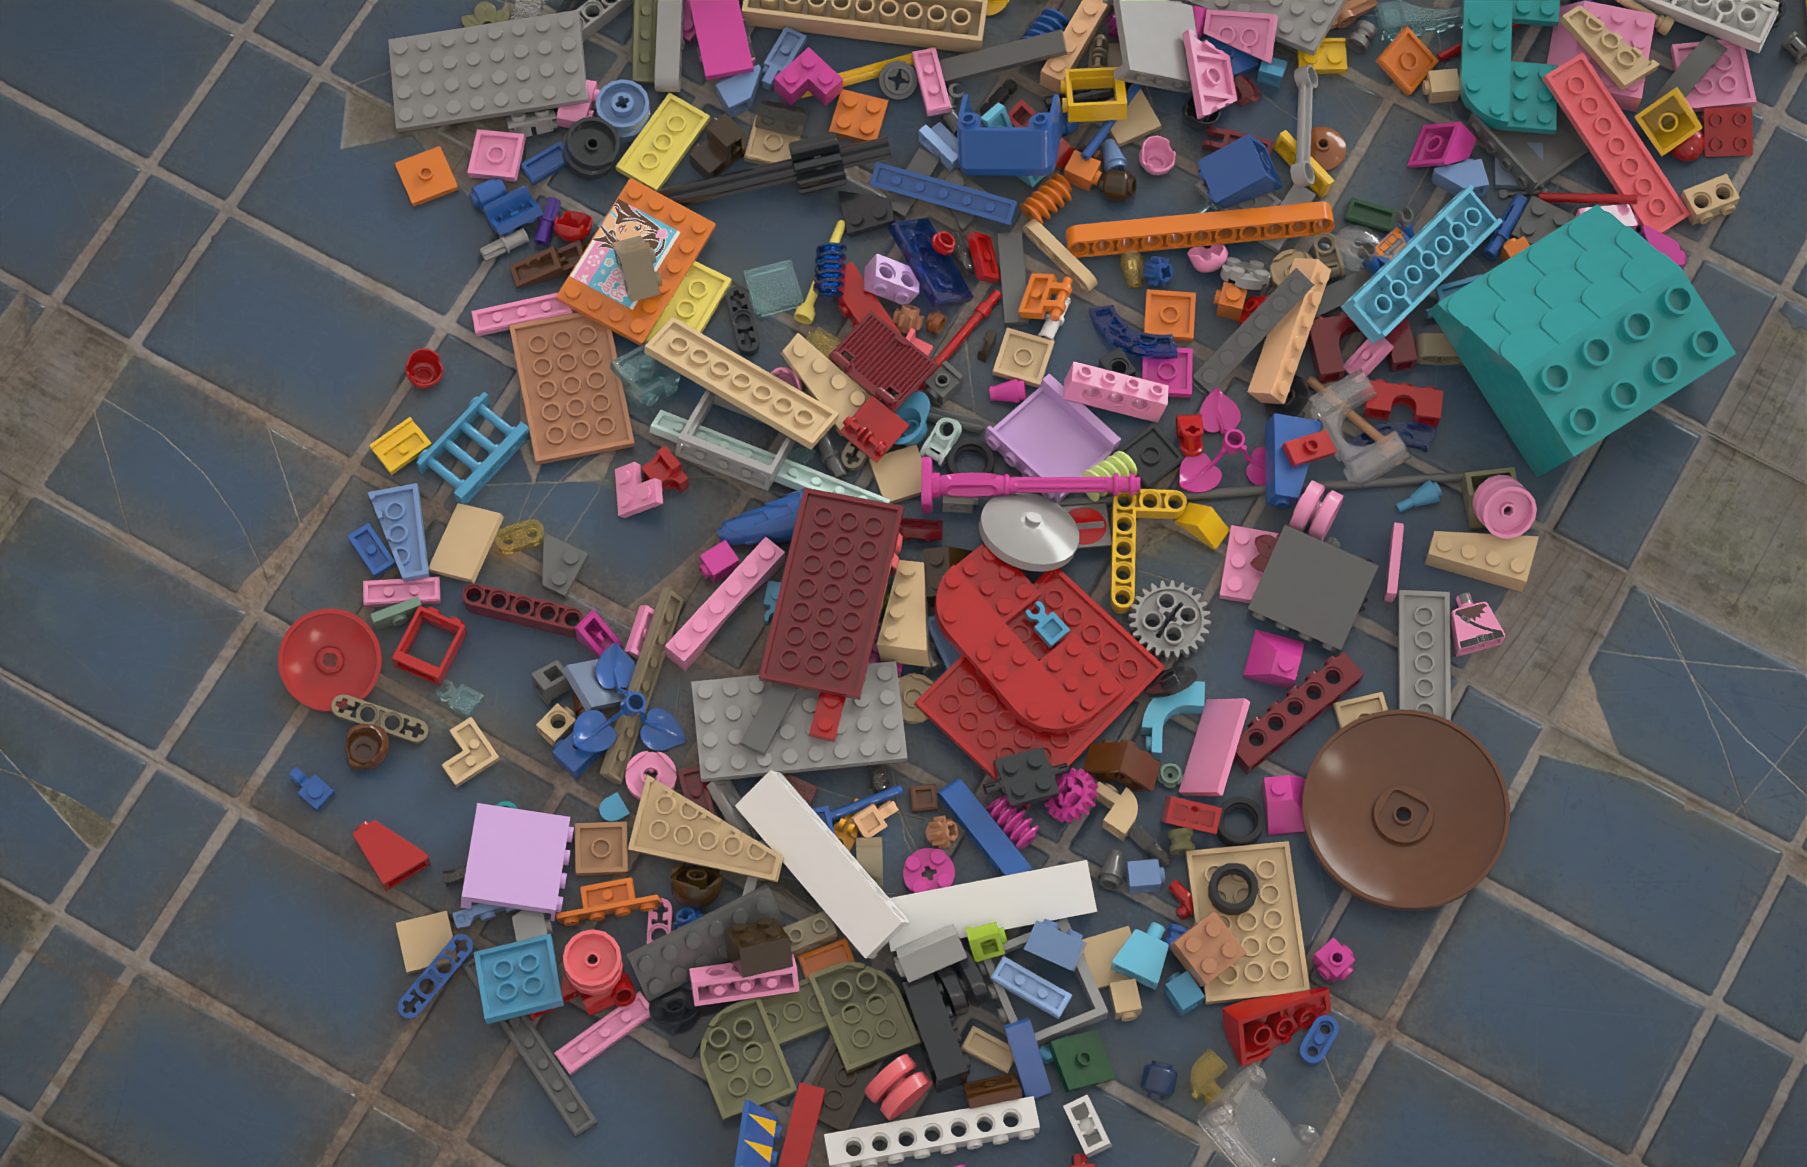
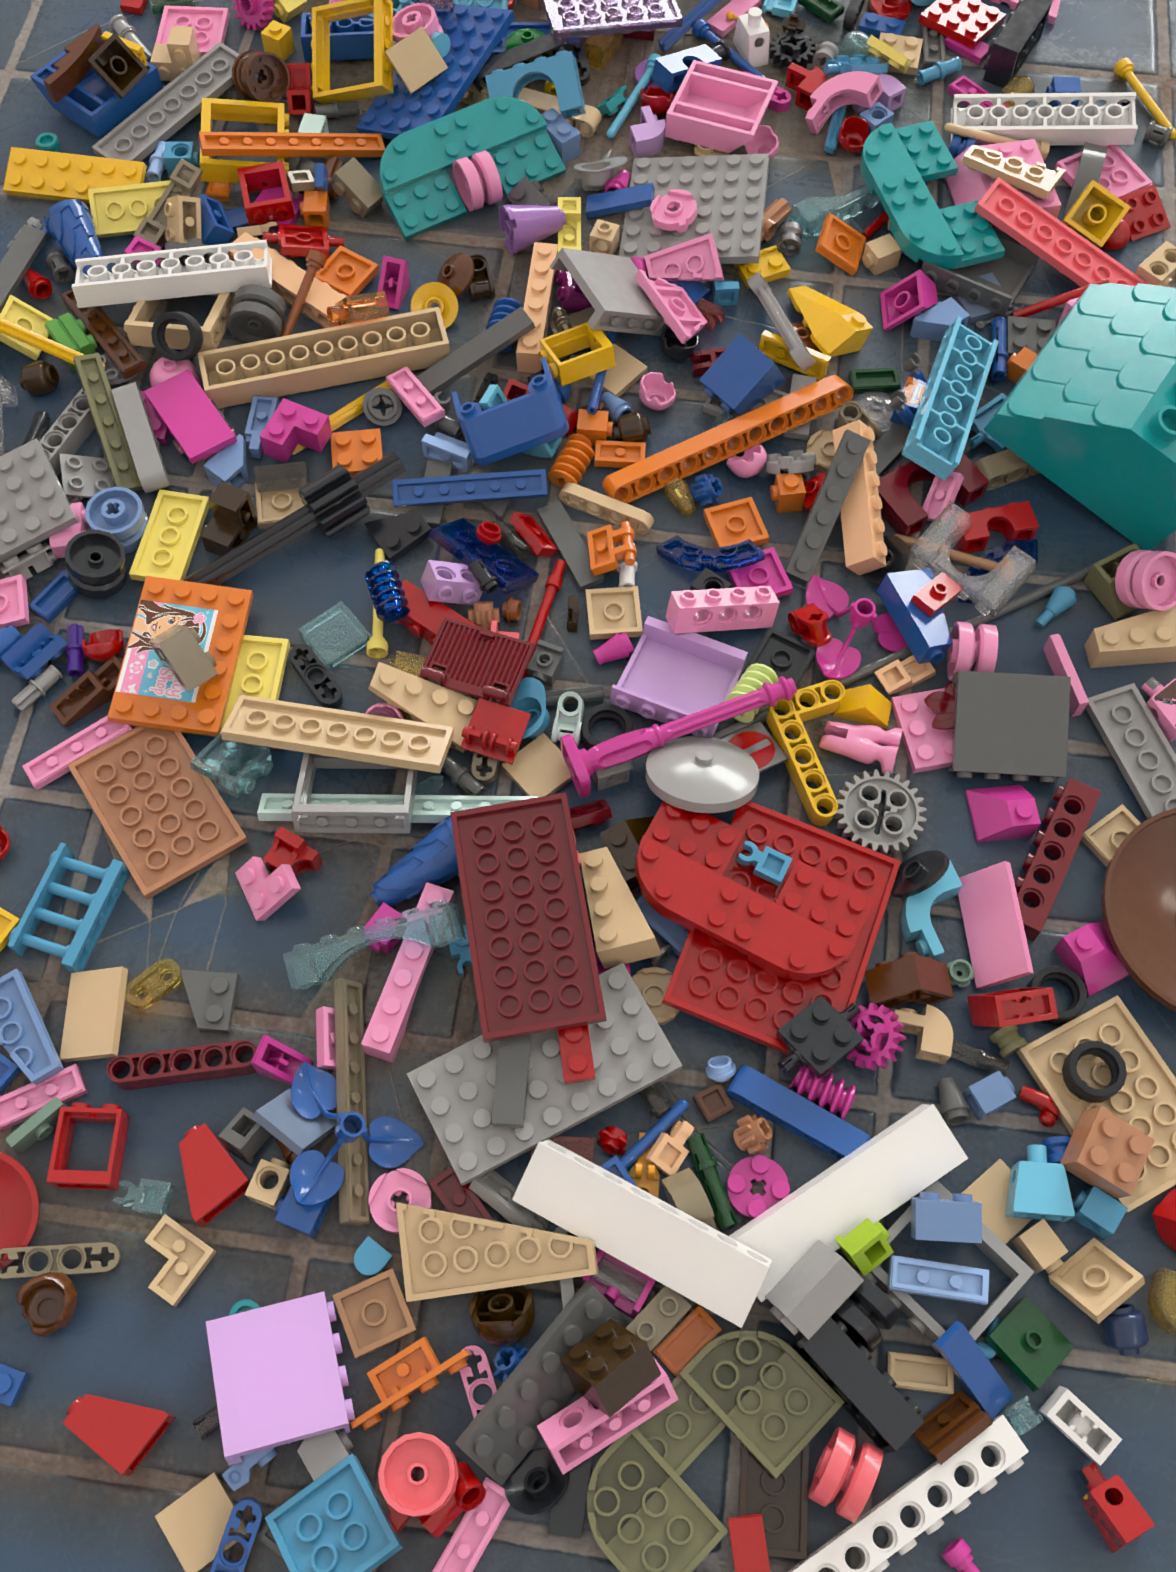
camera: 20 degrees left, 5 degrees down
(515, 700) = (210, 1174): none -> red slope
(608, 56) = (84, 476): none -> light grey hinge
(655, 569) = (319, 962): none -> clear light blue arch
(792, 898) = (620, 1284): none -> window
(831, 795) = (612, 1140): none -> red plate
(895, 854) = (711, 1181): none -> dark green pin
(919, 285) = (487, 581): none -> black pin
(940, 774) = (720, 1068): none -> light blue plate
(1049, 1105) = (1022, 1415): none -> clear light blue wheel
(1095, 205) = (618, 453): none -> orange plate
(1154, 1037) = (1096, 1280): none -> tan plate
(1184, 554) = (862, 742): none -> bright pink piece
(1251, 509) = (904, 674): none -> light nougat slope
(1354, 143) = (833, 325): none -> yellow wedge

